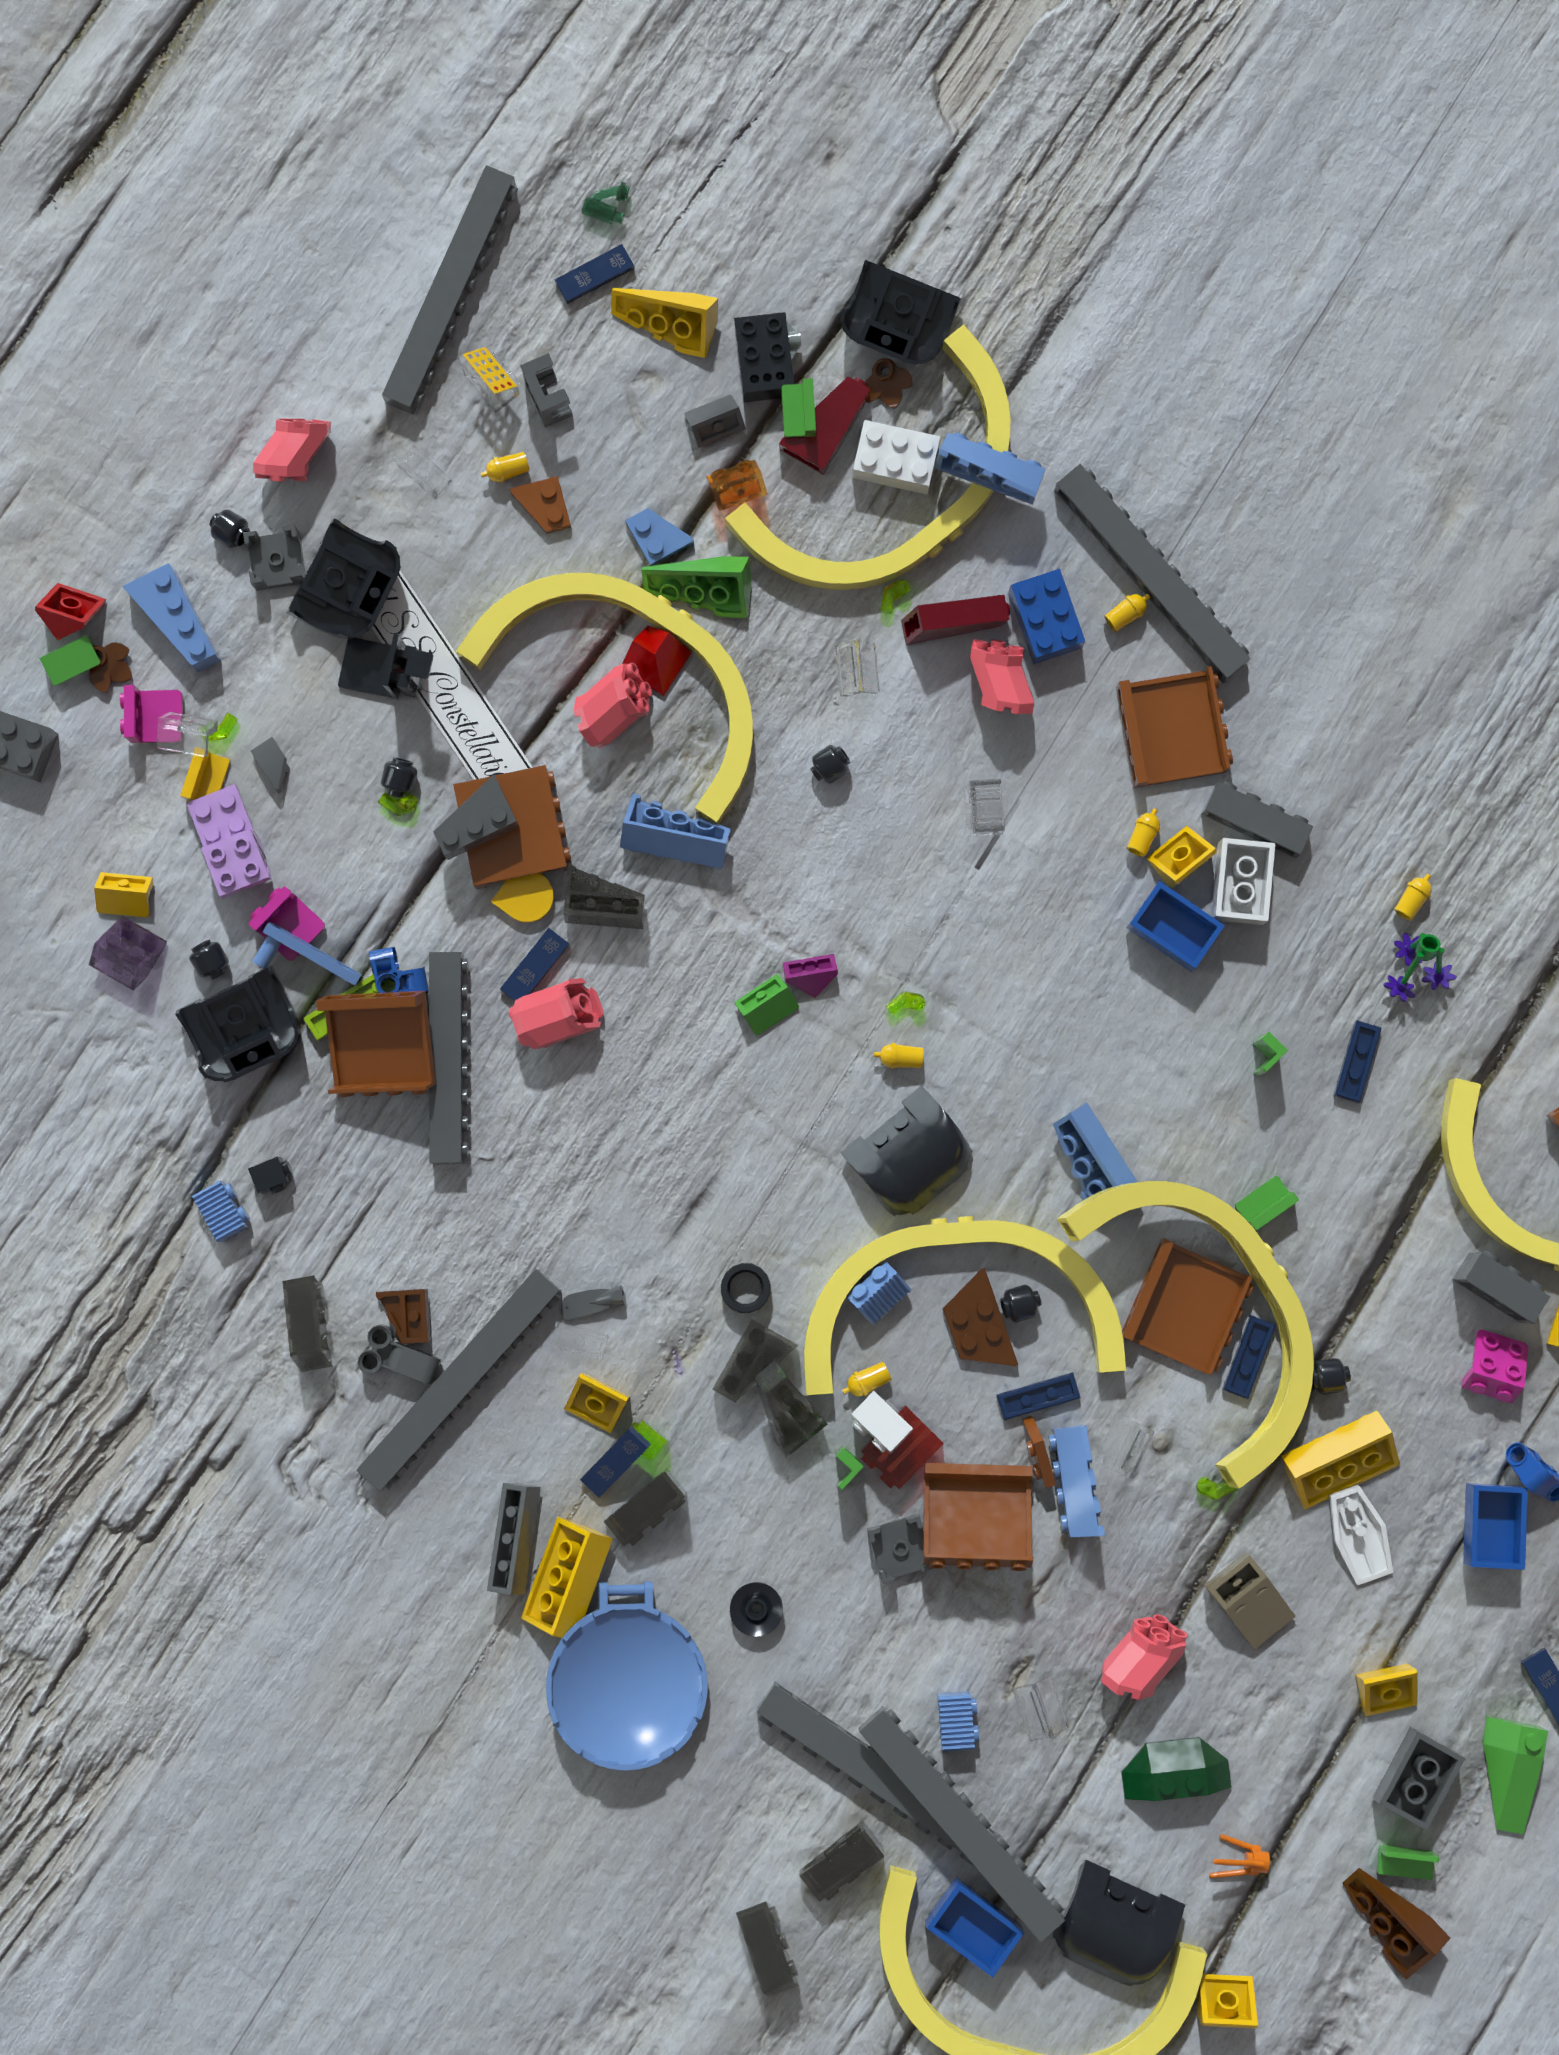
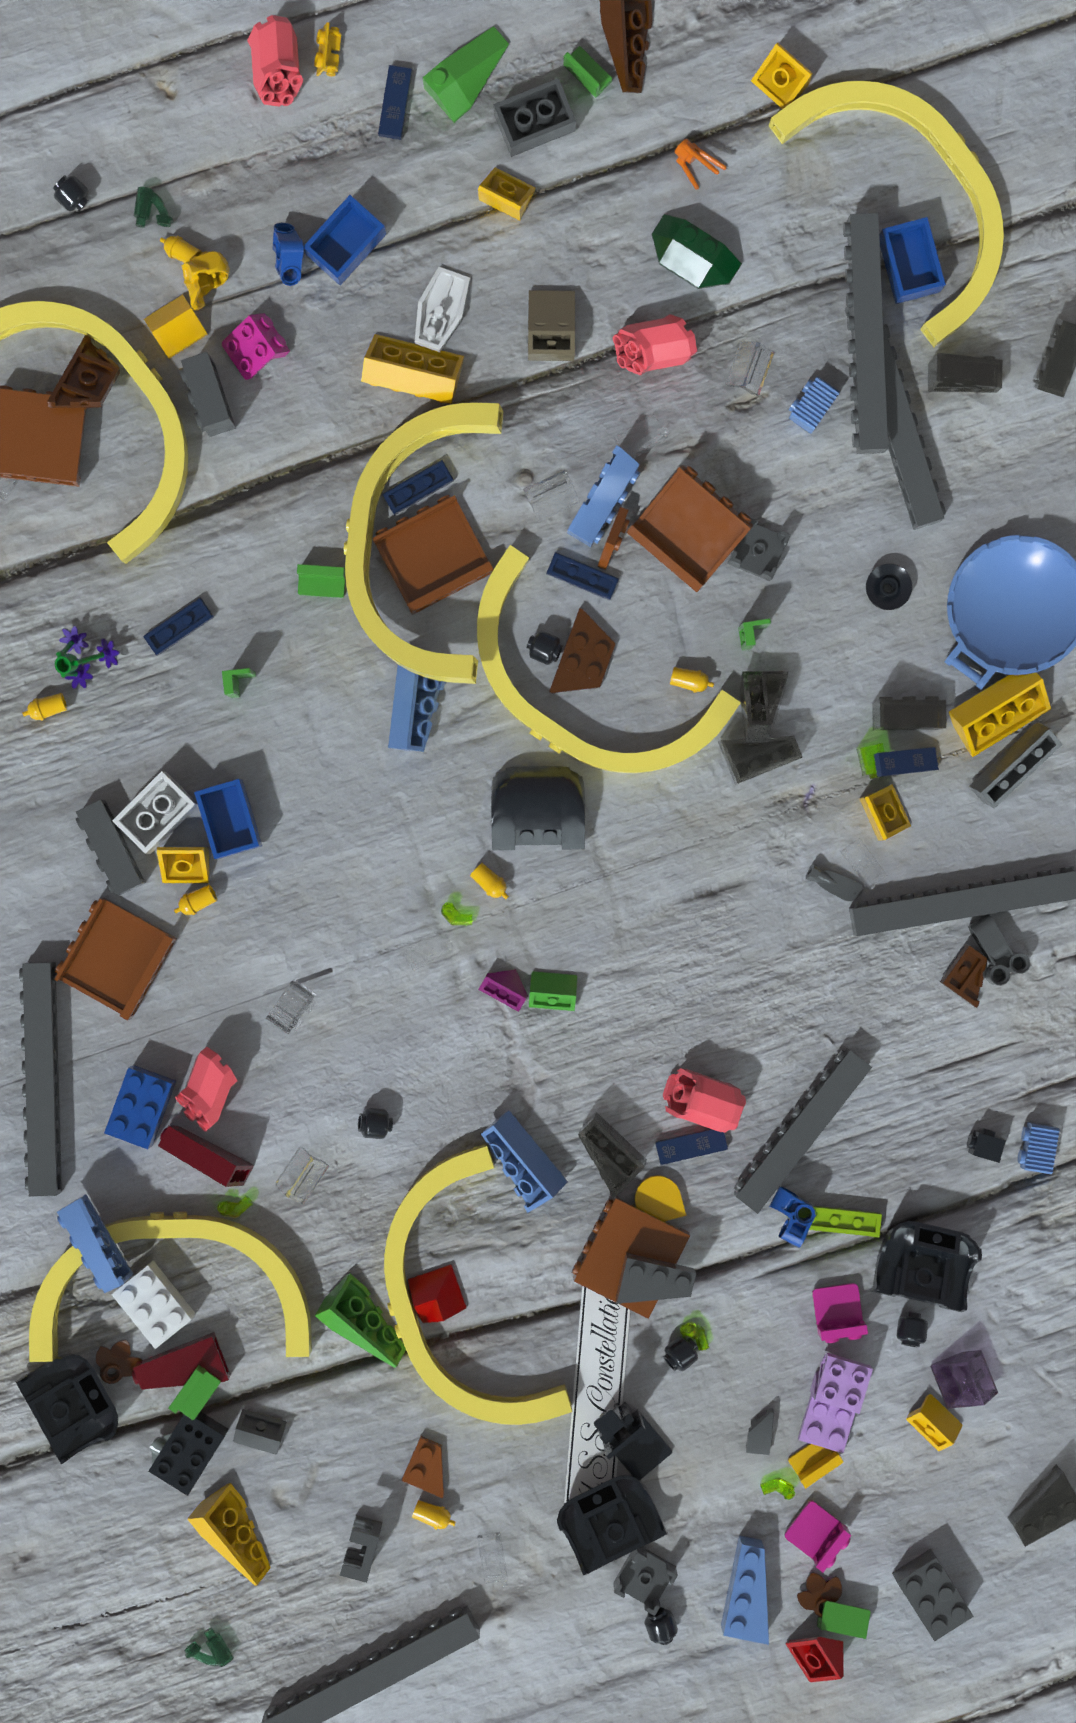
camera: 140 degrees left, 5 degrees up
(185, 733) = (806, 1504): clear panel -> none
(278, 935) = (852, 1308): medium blue piece -> none
(291, 449) = (573, 1649): coral brick -> none
(307, 1323) = (1041, 1024): clear smoke wedge -> none
(379, 1043) = (842, 1177): dark orange panel -> none
(489, 378) = (393, 1589): slope -> none
(594, 274) = (259, 1605): dark blue tile -> none
(612, 705) = (493, 1286): coral brick -> none
(657, 536) = (366, 1381): medium blue wing -> none
(736, 484) = (281, 1374): clear orange brick -> none
(765, 1288) = (705, 808): black tyre -> none
(879, 1293) = (635, 732): medium blue brick -> none
(881, 1422) = (705, 642): white brick -> none
(907, 1457) = (704, 616): clear red brick -> none
(1117, 1927) = (814, 183): black piece -> none
(1126, 611) = (81, 1065): yellow piece -> none
(1213, 1490) = (515, 418): clear neon green arm -> none
(1330, 1376) = (374, 429): black head -> none

